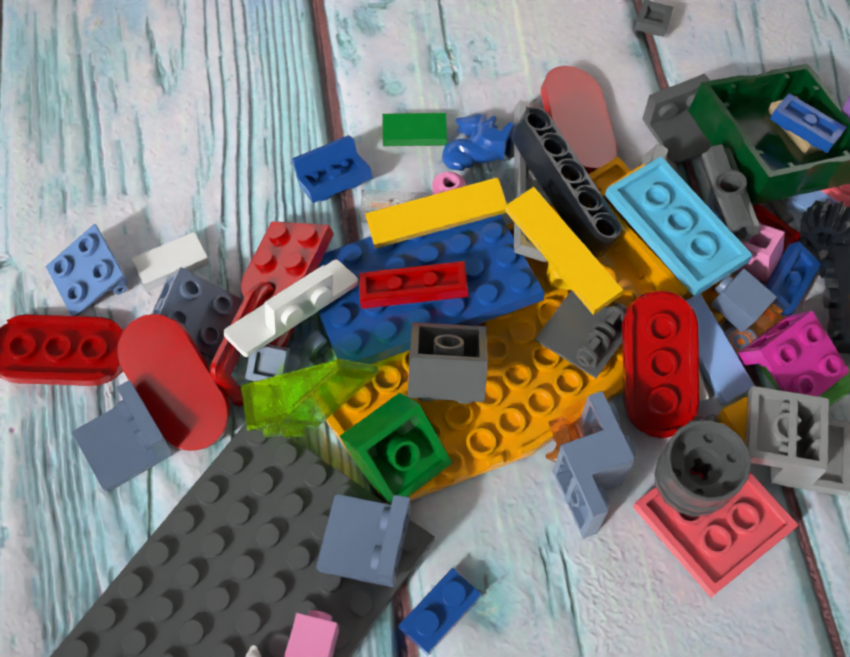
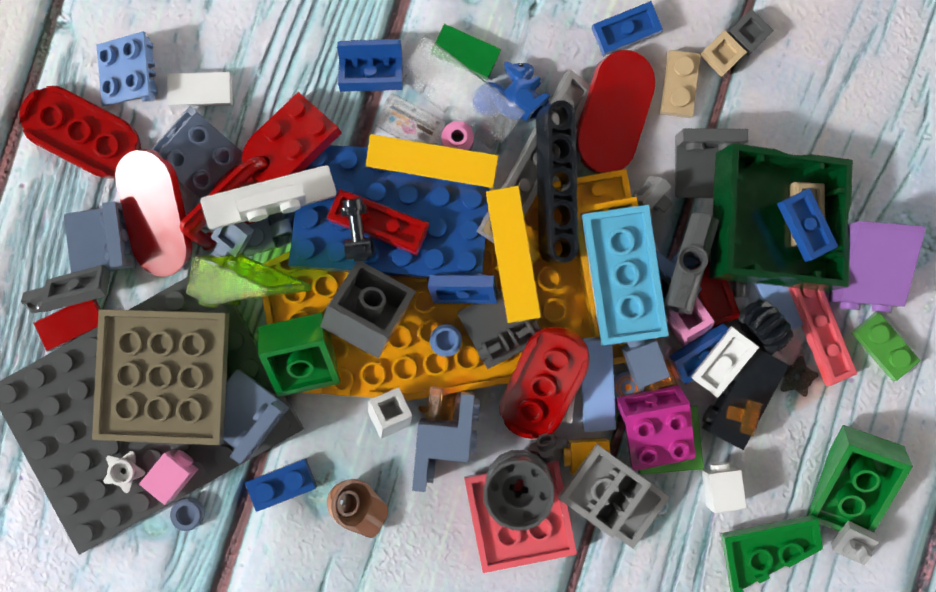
camera: 20 degrees right, 25 degrees up
(105, 506) = (68, 290): none -> dark grey hinge
(119, 544) = (67, 324): none -> red tile
(254, 540) = (161, 377): none -> dark tan plate
(407, 309) = (358, 247): none -> black bar
(430, 153) = (459, 86): none -> clear windscreen
(520, 468) = (389, 413): none -> white brick
(531, 308) = (463, 289): none -> blue plate
(537, 587) = (361, 507): none -> nougat cap
(539, 369) = (445, 340): none -> medium blue plate
(547, 54) = (627, 28): none -> blue plate
(620, 79) = (680, 84): none -> tan plate
(642, 41) = (723, 53): none -> tan plate
(816, 269) = (724, 361): none -> white plate

